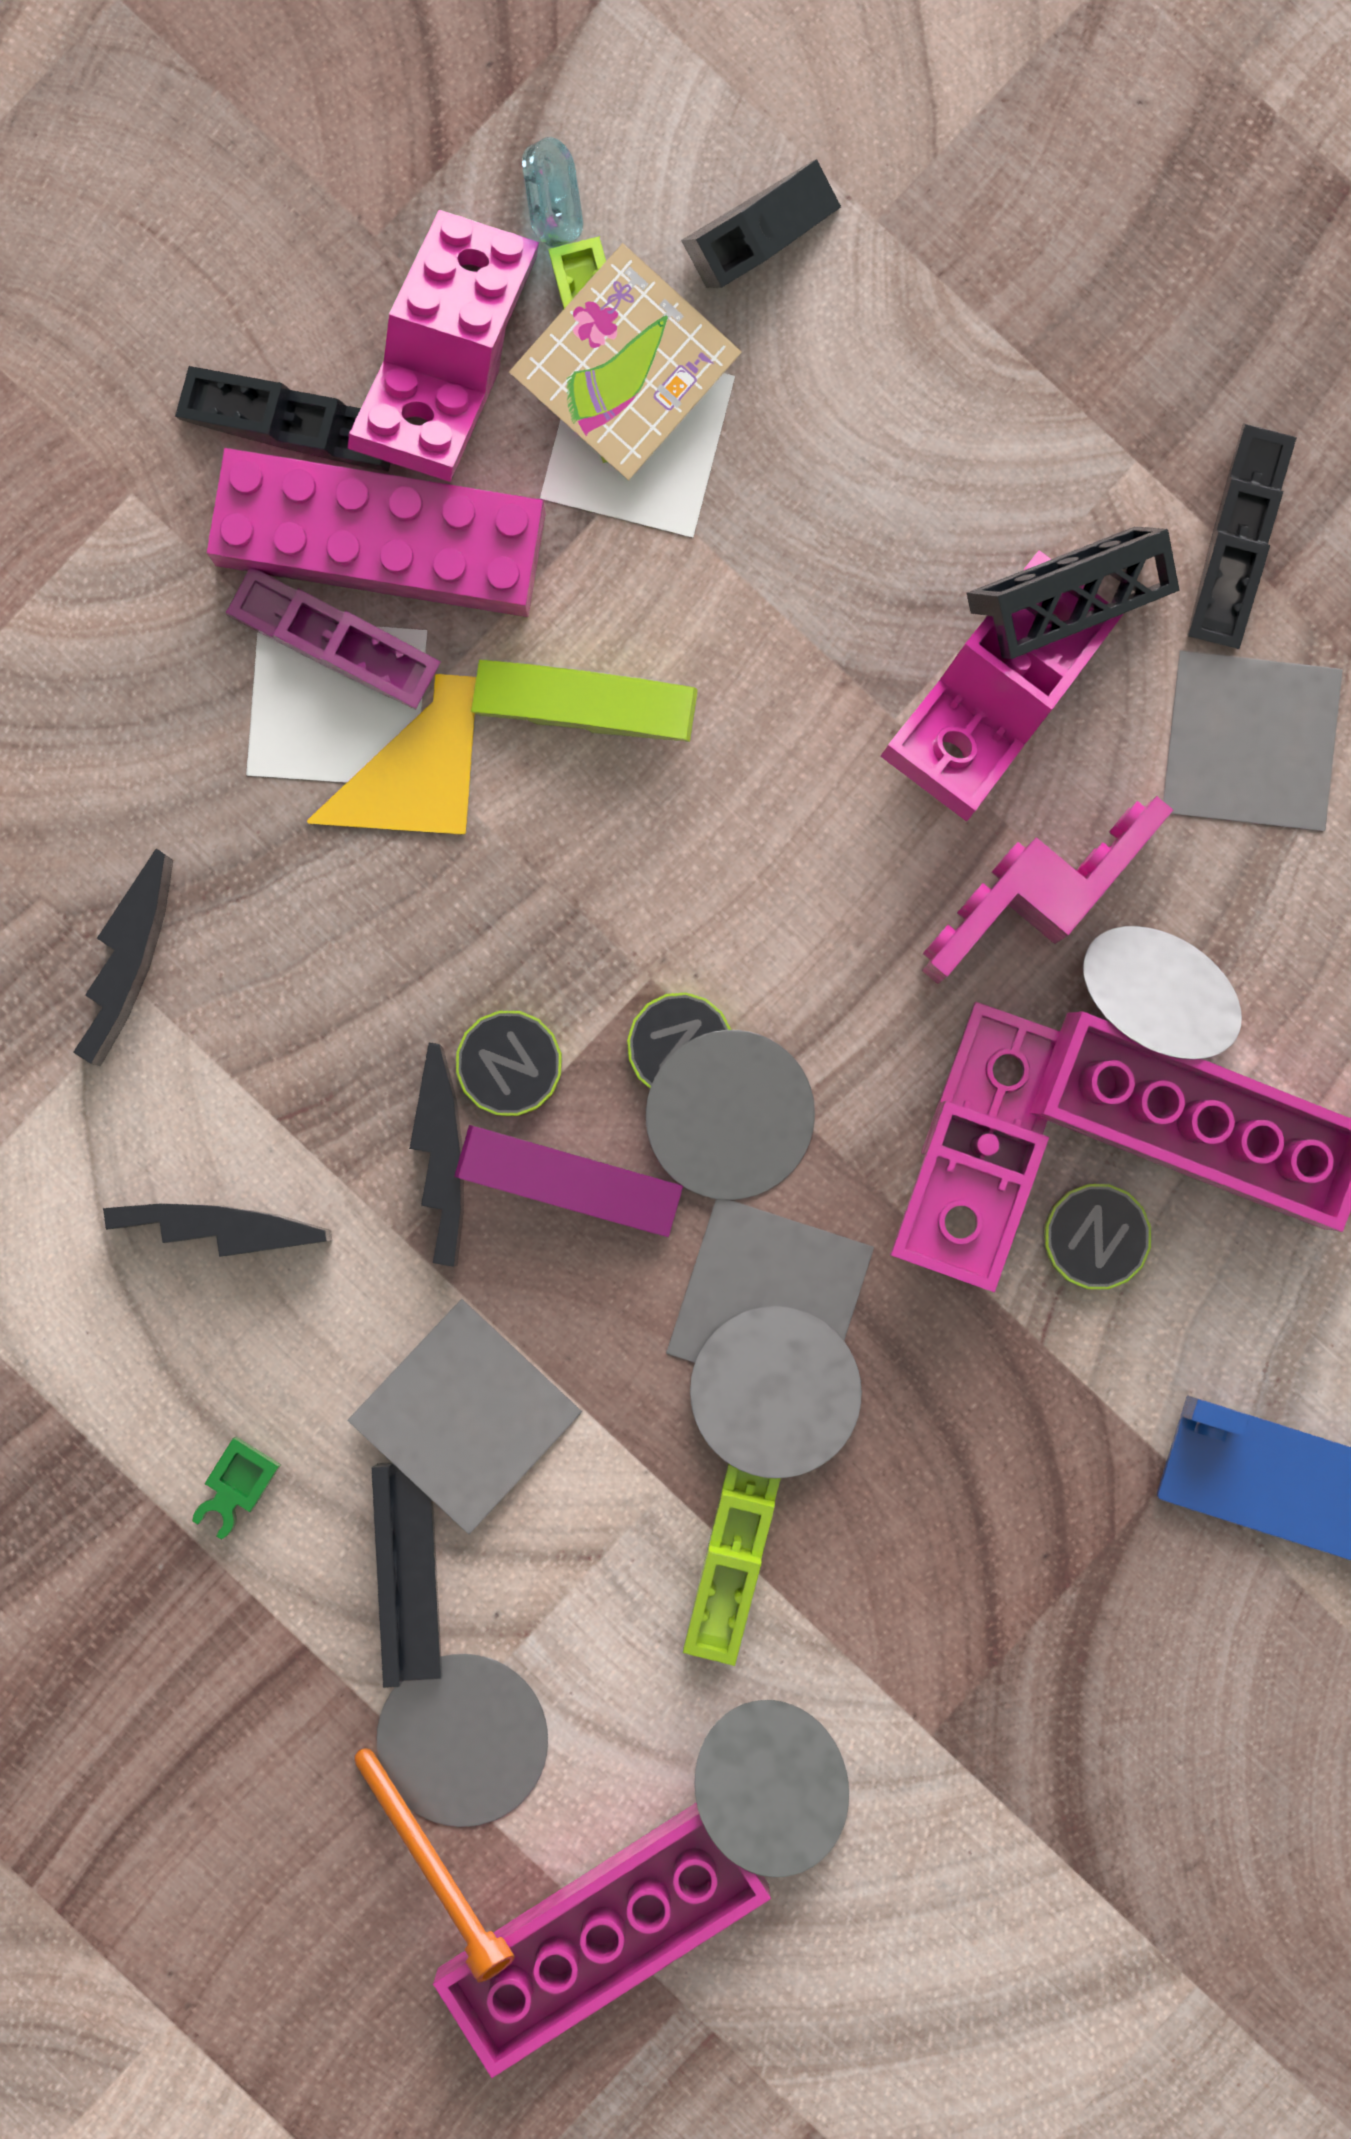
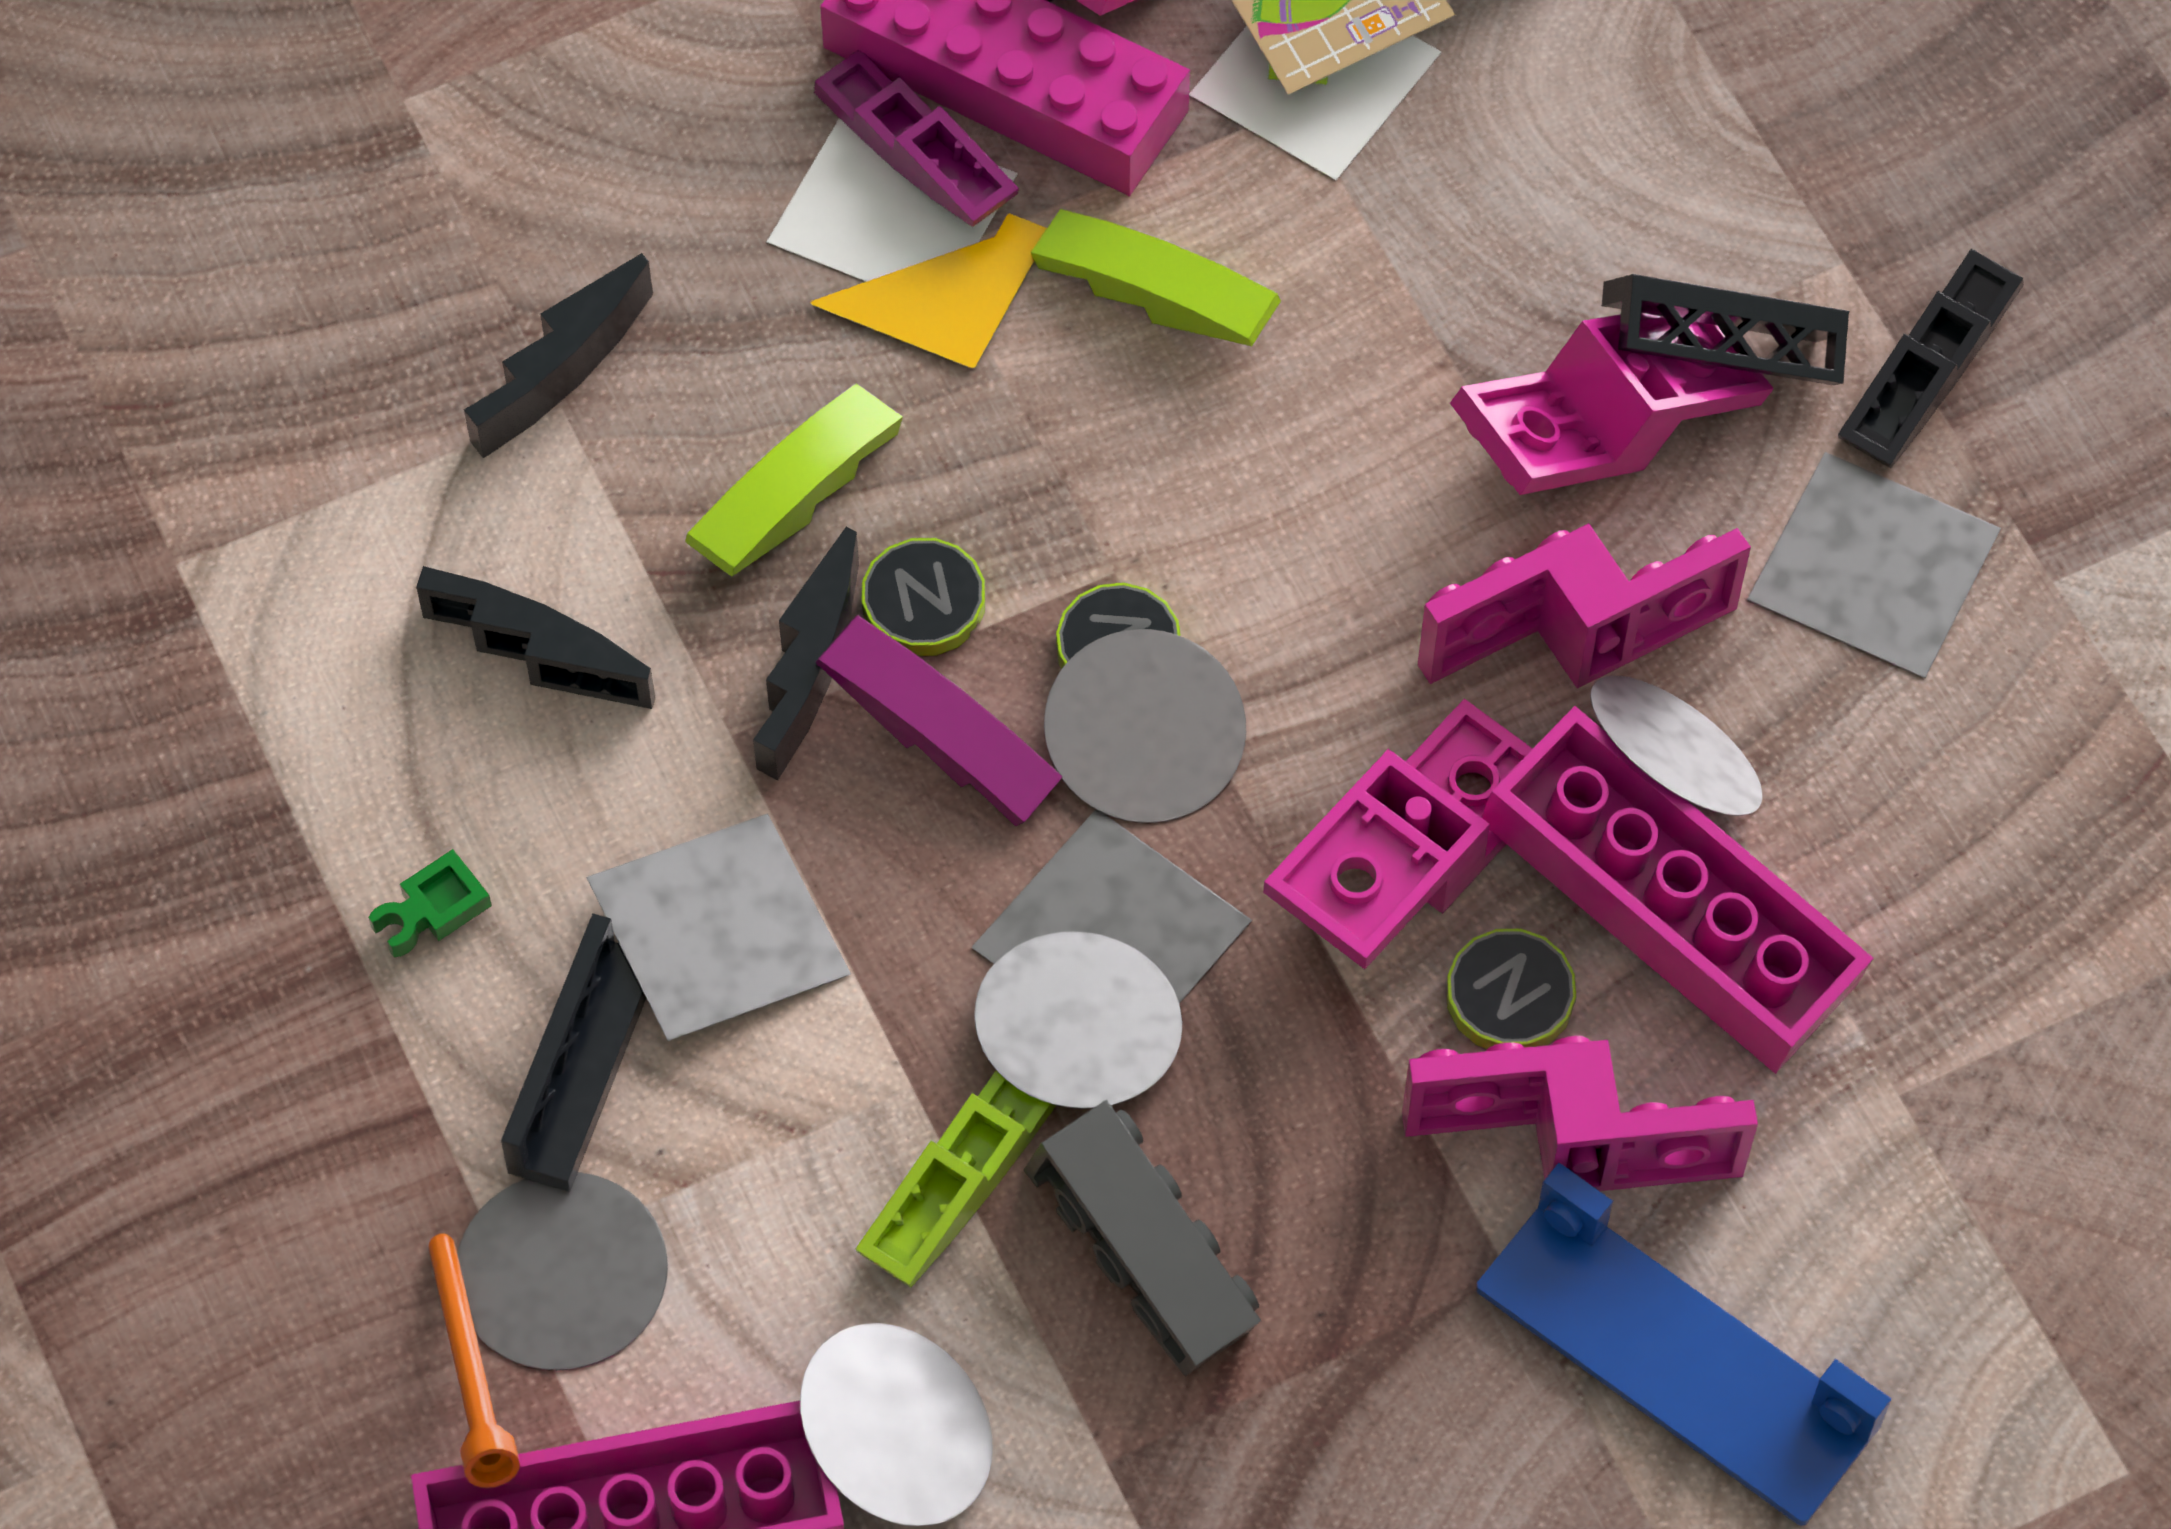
camera: 25 degrees right, 25 degrees down
(365, 1003) = (793, 477): none -> lime slope
(896, 1564) = (1145, 1236): none -> dark grey wedge
(1195, 1343) = (1577, 1114): none -> dark pink bracket

